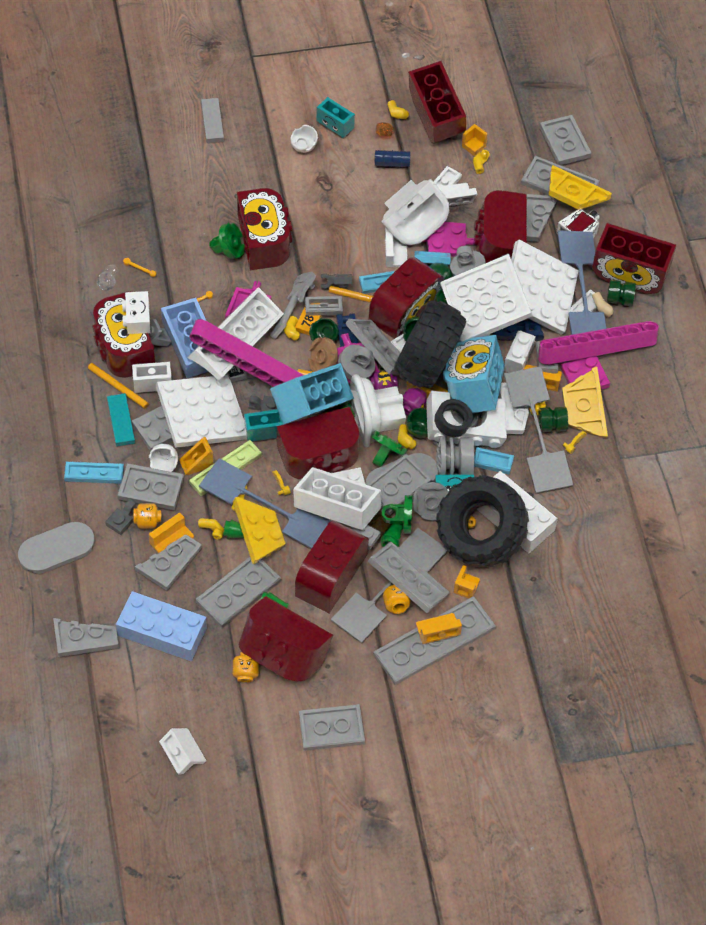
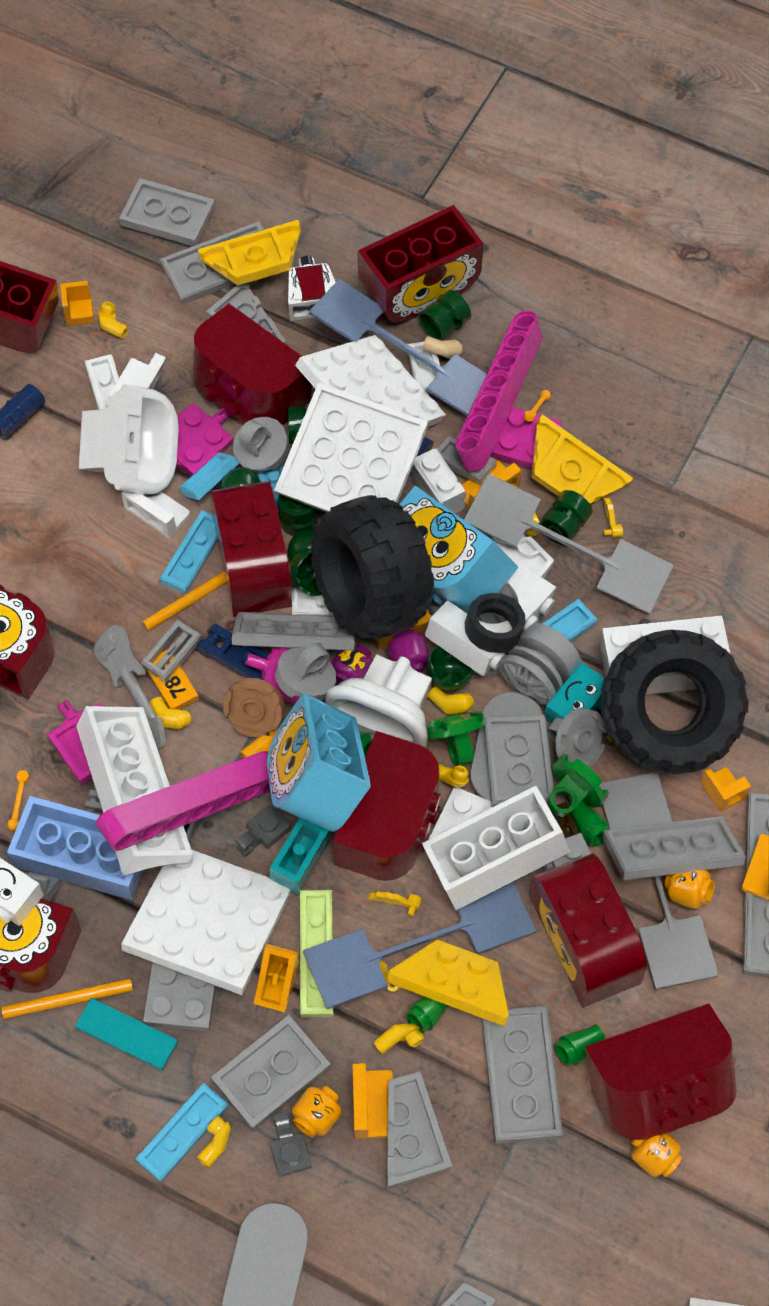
camera: 50 degrees left, 5 degrees up
(101, 488) = (217, 1144): none -> yellow arm
(147, 375) = (99, 944): white brick -> none
(161, 626) = (510, 1218): light blue brick -> none
(163, 457) = (243, 1022): white hair -> none
(324, 329) = (213, 678): dark green hair -> none
(341, 280) = (145, 603): dark grey plate -> none
(365, 463) = (454, 776): none -> yellow arm
(620, 368) = (530, 415): none -> light orange hinge

